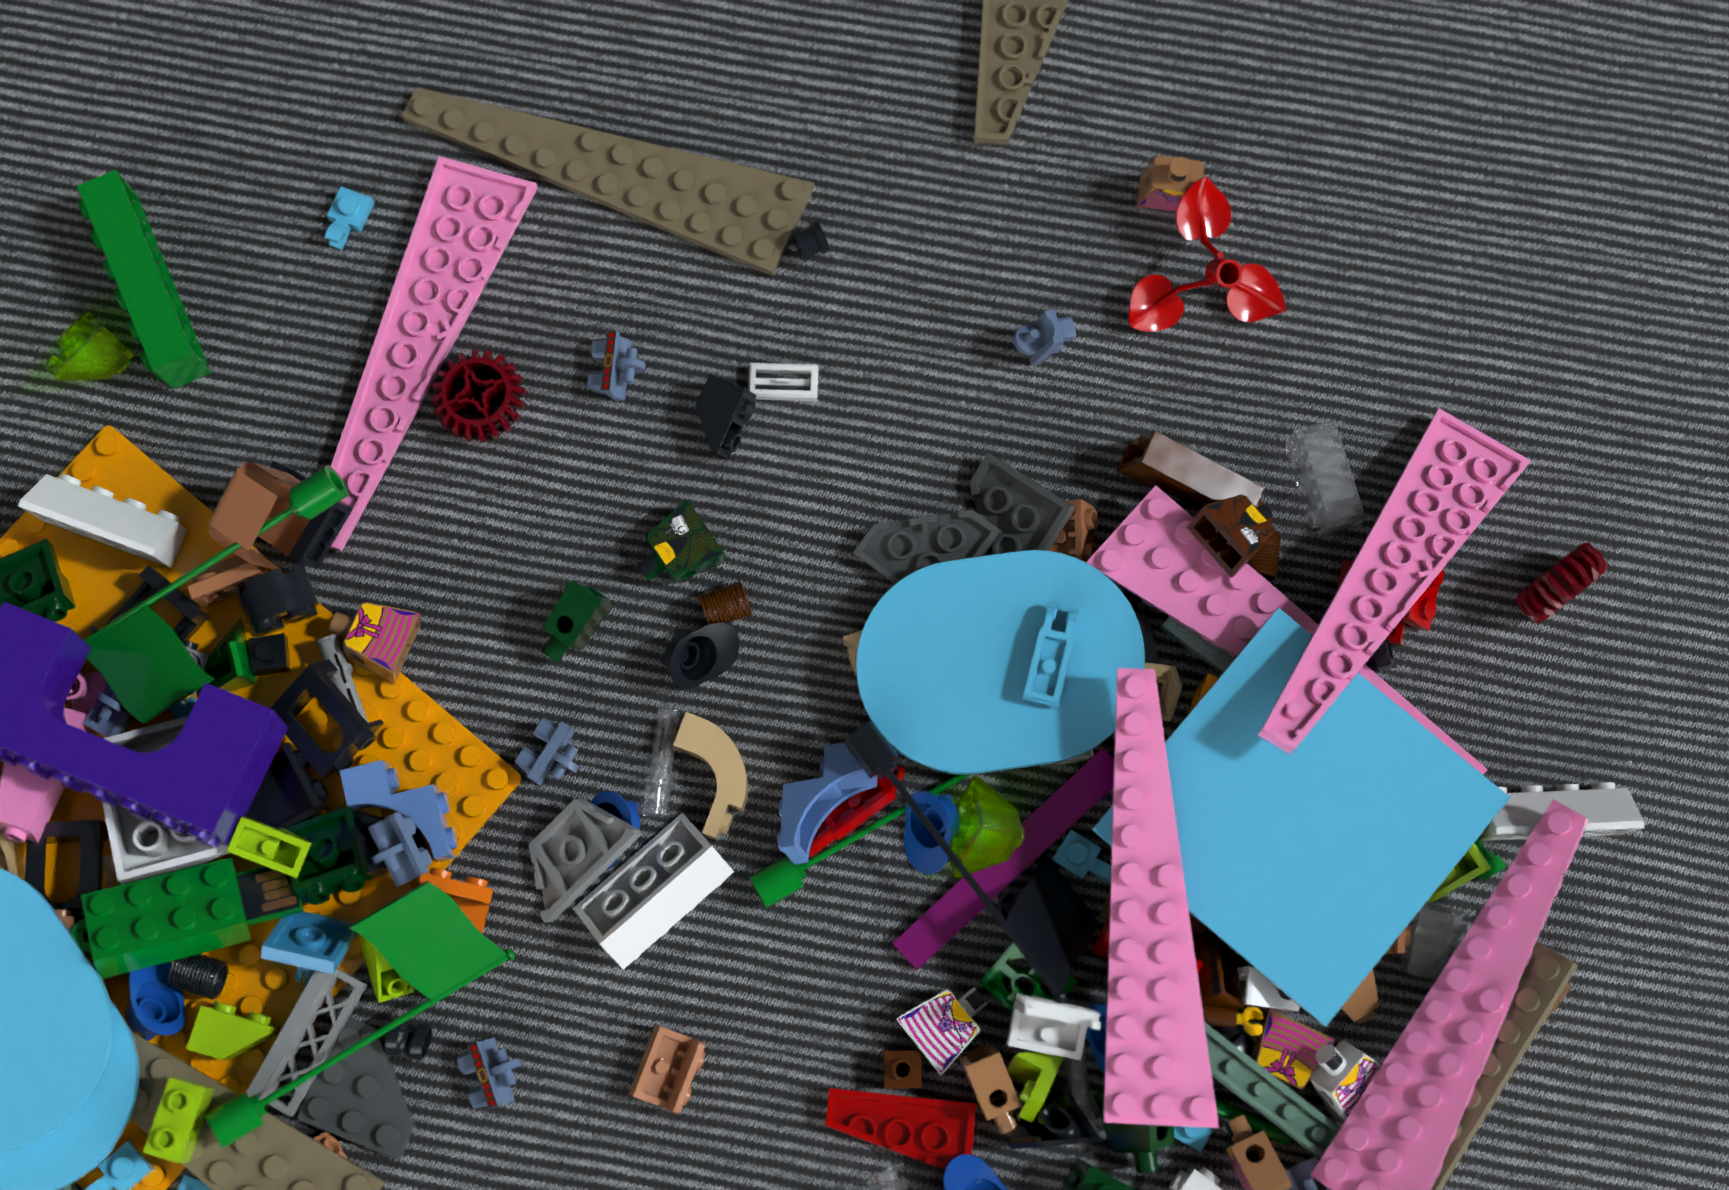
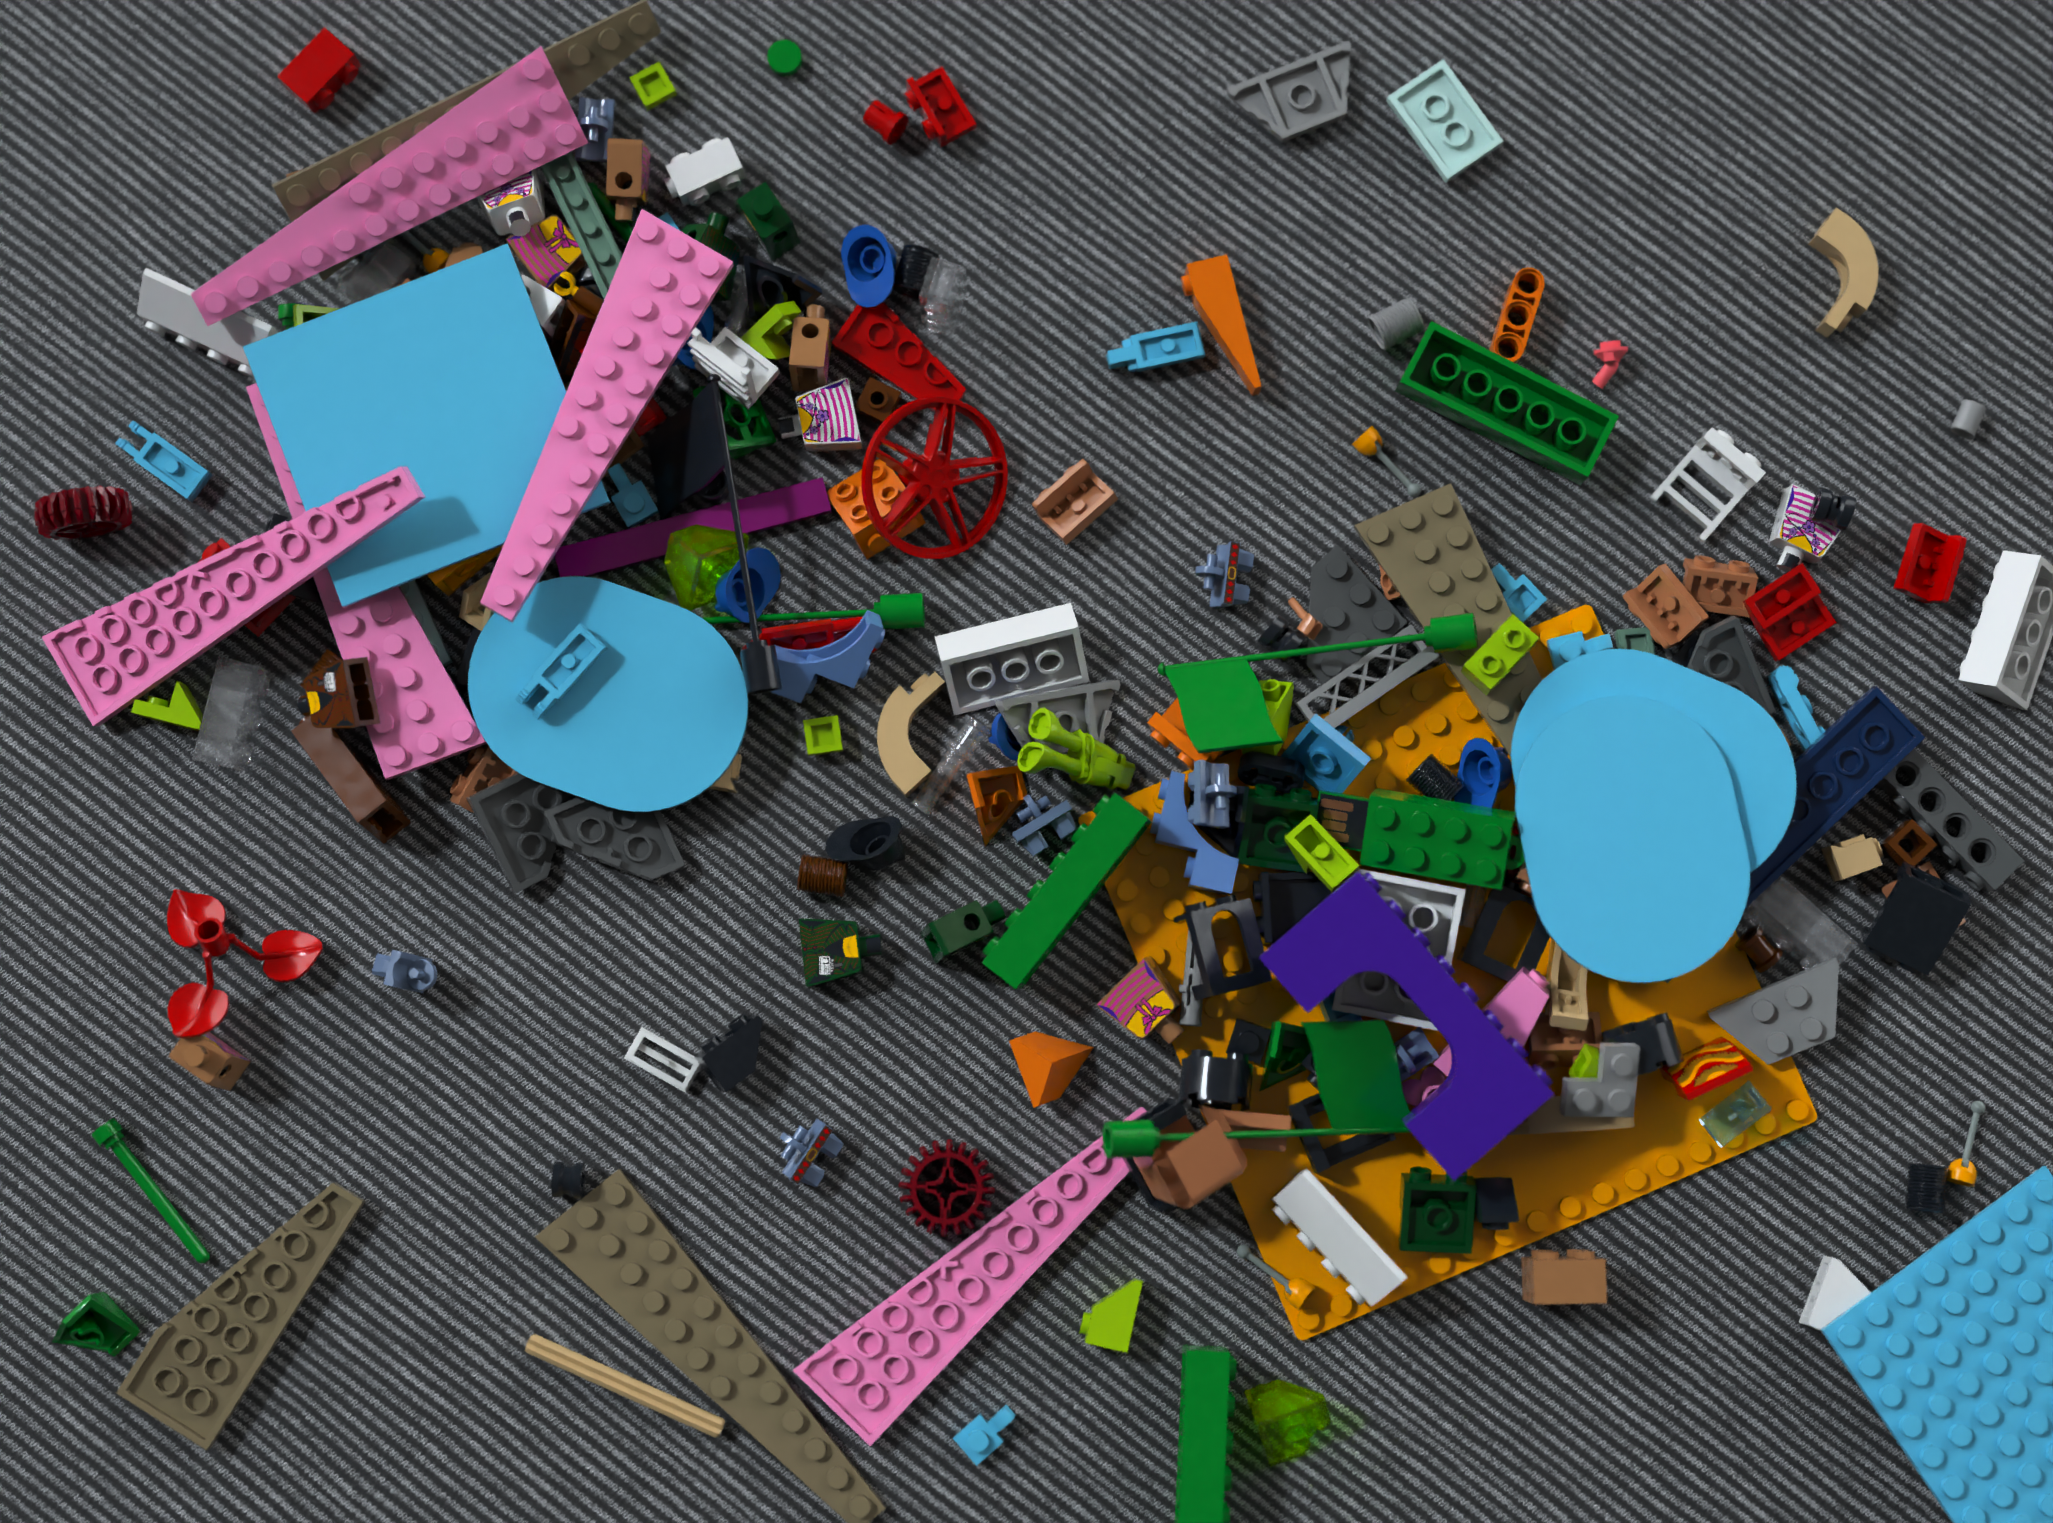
camera: 155 degrees left, 5 degrees up
(126, 461) = (1296, 1291): none -> hinge
(227, 1035) = (1431, 718): lime slope -> none
(279, 361) = (1113, 1318): none -> lime slope
(353, 906) = (1271, 771): none -> black beam
(386, 1065) = (1309, 625): none -> nougat hand
(442, 545) = (1047, 1064): none -> orange slope
(492, 698) = (1066, 892): none -> green brick
(533, 827) = (1086, 760): none -> lime piece
(605, 757) = (995, 797): none -> orange slope
(673, 105) = (625, 1385): none -> tan axle
(790, 730) = (823, 735): none -> lime plate
(809, 1018) = (933, 476): none -> red wheel
(853, 967) = (849, 504): none -> orange bracket
(1214, 86) = (111, 1138): none -> green piece
(1369, 457) = (181, 712): none -> lime slope
(1390, 988) = (434, 259): none -> light orange hinge
(1519, 671) = (167, 463): none -> medium azure hinge
(1604, 1115) = (320, 71): none -> red brick

